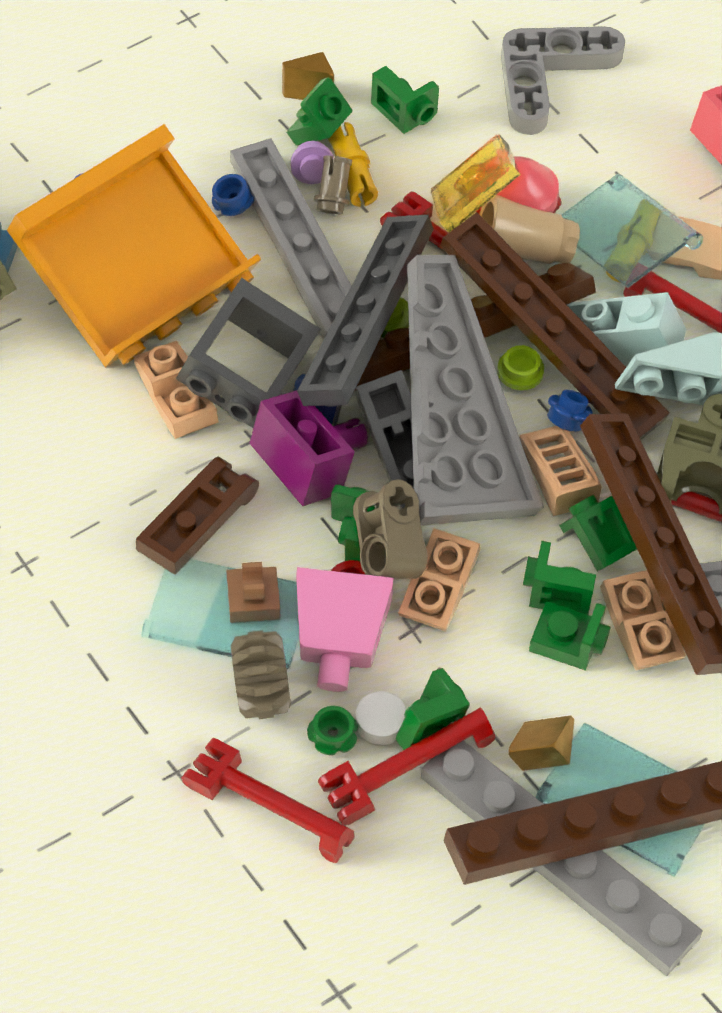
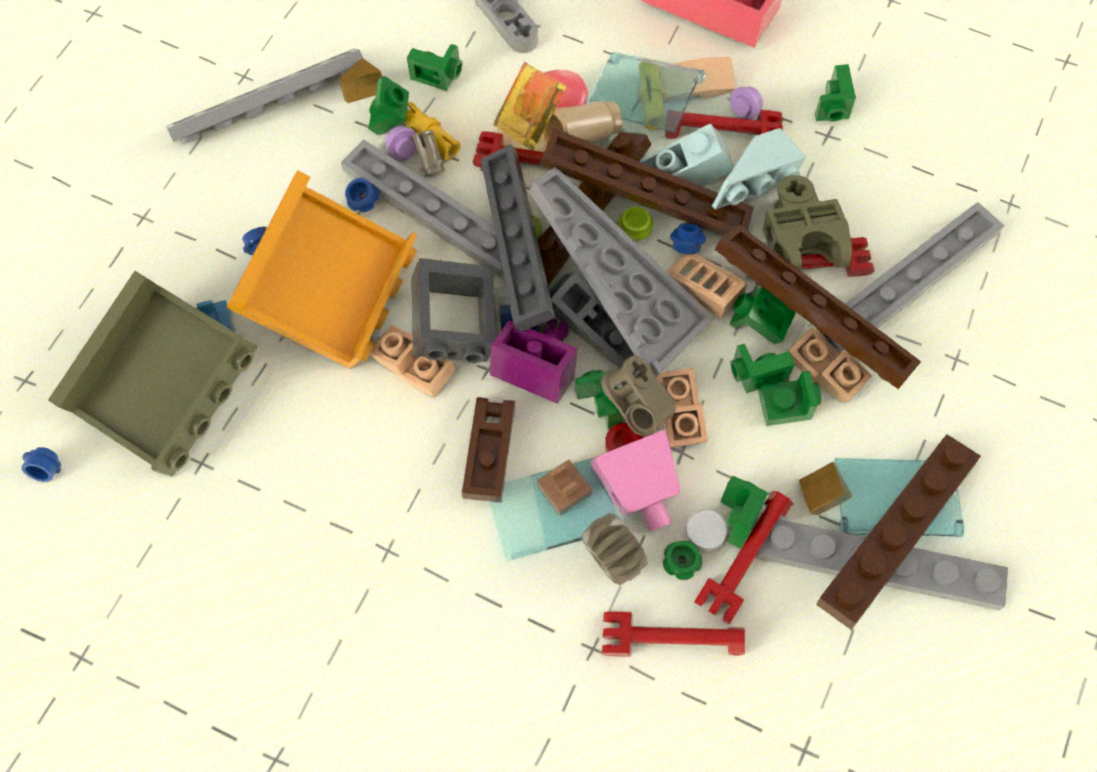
camera: 25 degrees left, 10 degrees up
(176, 47) = (253, 101): none -> light grey plate

